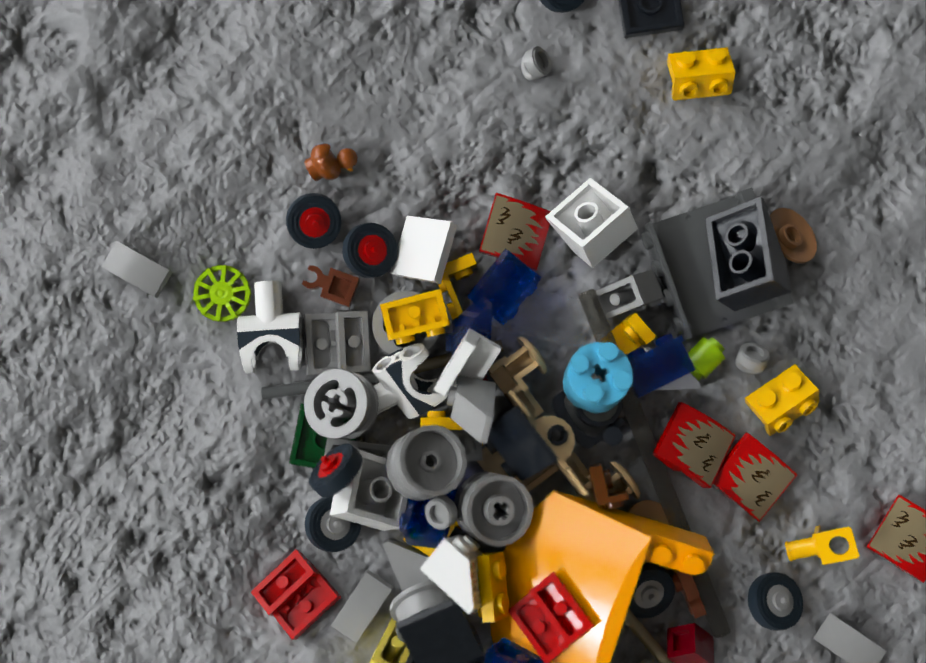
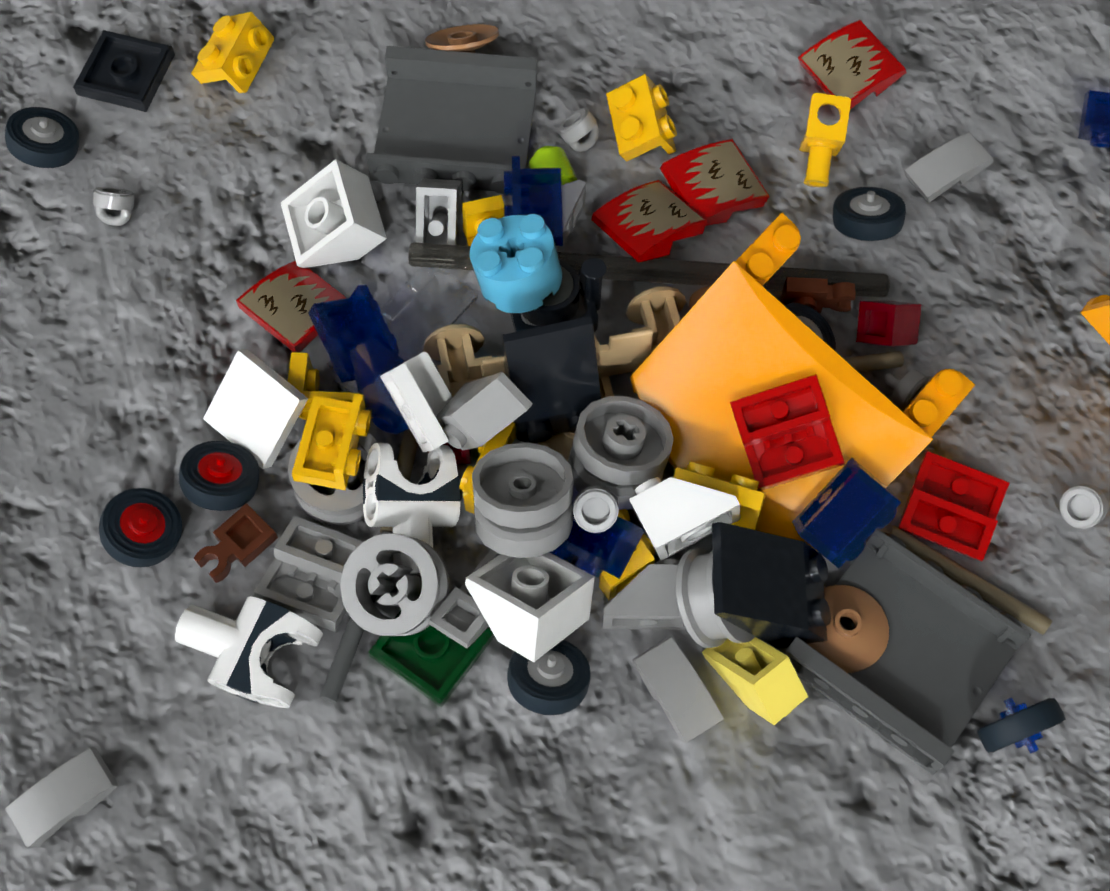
camera: 70 degrees left, 20 degrees down
(222, 293) = (164, 694): lime wheel -> none
(295, 594) = (623, 775): red slope -> none
(325, 164) = (78, 484): dark orange animal -> none
(335, 470) = (476, 612): black wheel -> none
(601, 483) = (646, 313): reddish brown bracket -> none
(746, 256) = (459, 76): black slope -> none

